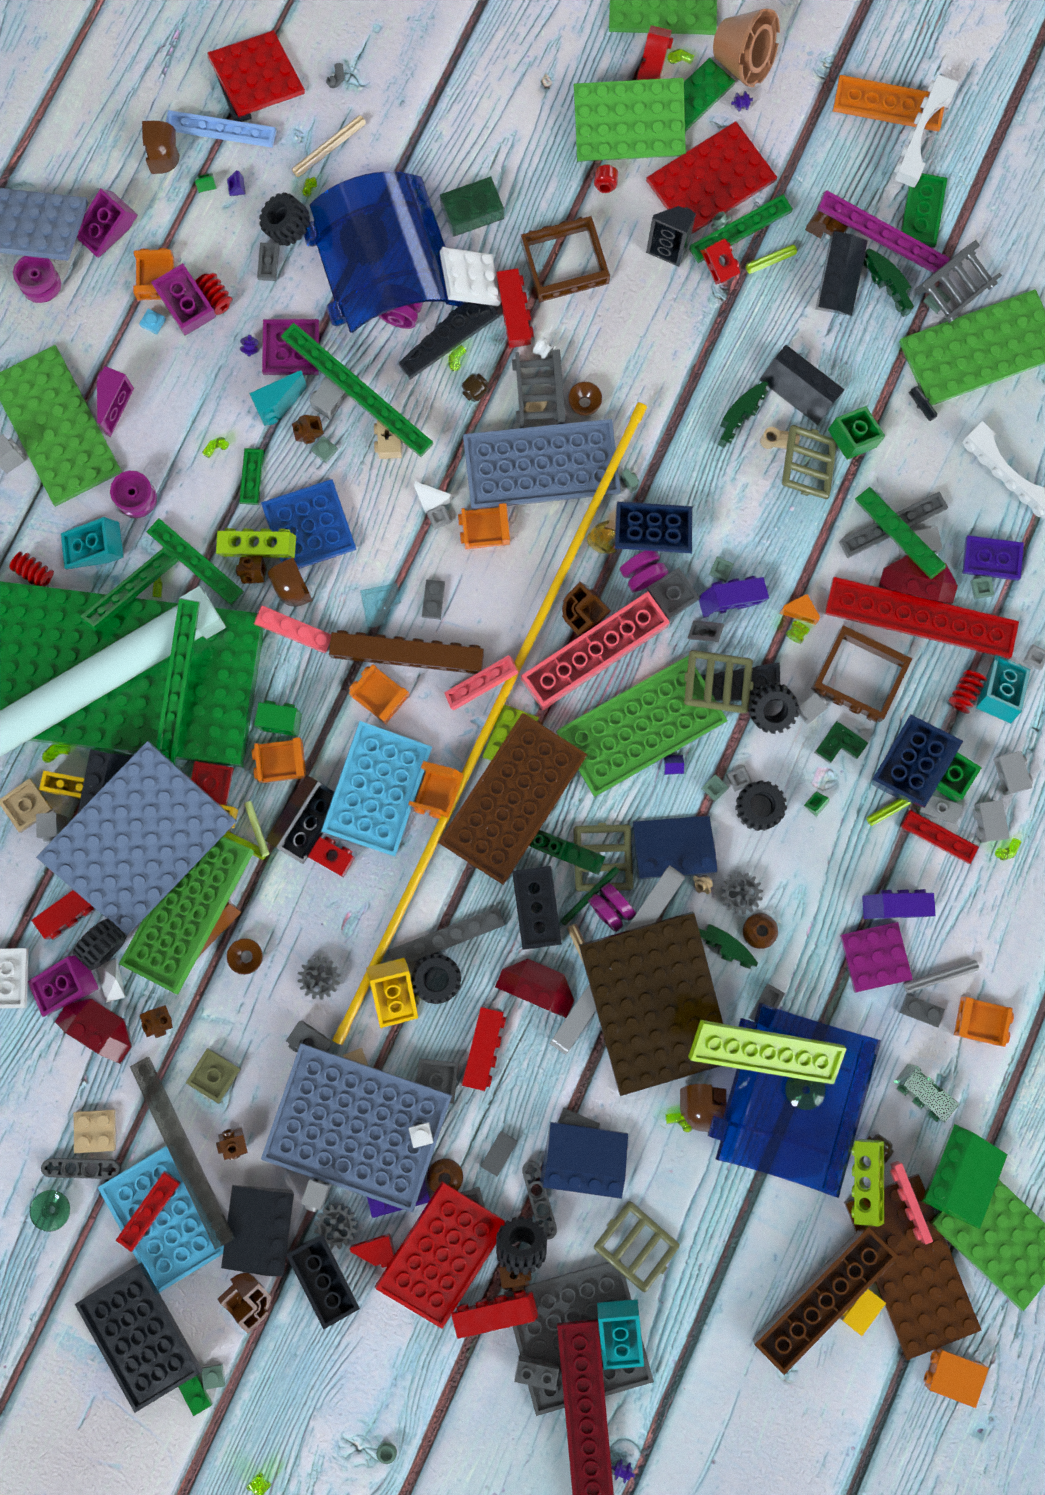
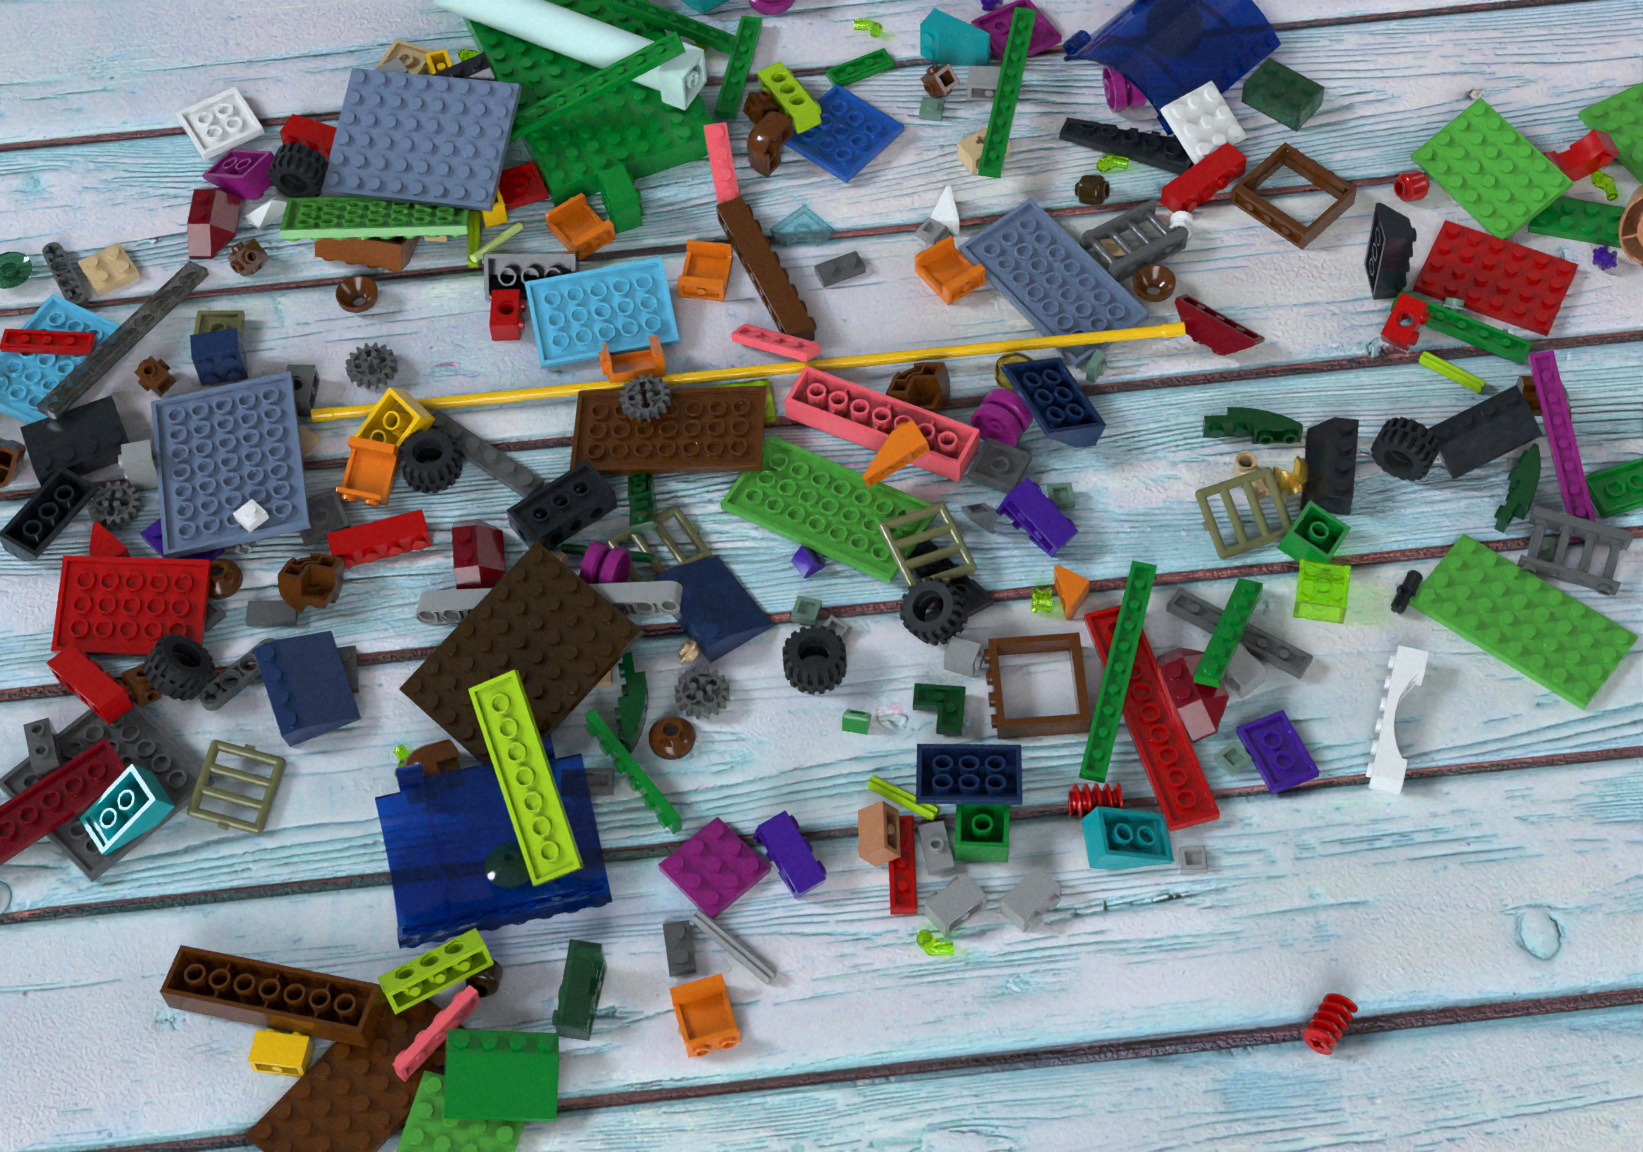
camera: 65 degrees right, 25 degrees down
(247, 1089) = (219, 356): none -> dark blue brick
(421, 1028) = (369, 471): none -> orange panel
(493, 797) = (637, 408): none -> dark grey gear
(496, 1115) = (311, 581): none -> reddish brown brick
(638, 654) = (900, 449): none -> orange slope
(651, 381) = (1213, 328): none -> dark red wedge
(785, 972) = (636, 776): none -> green plate
(798, 414) = (1292, 482): none -> clear yellow piece
(826, 331) = (1405, 449): none -> black tyre
(886, 618) = (1117, 672): none -> green plate
(895, 454) = (1321, 591): none -> clear neon green brick
(917, 840) = (879, 833): none -> nougat brick

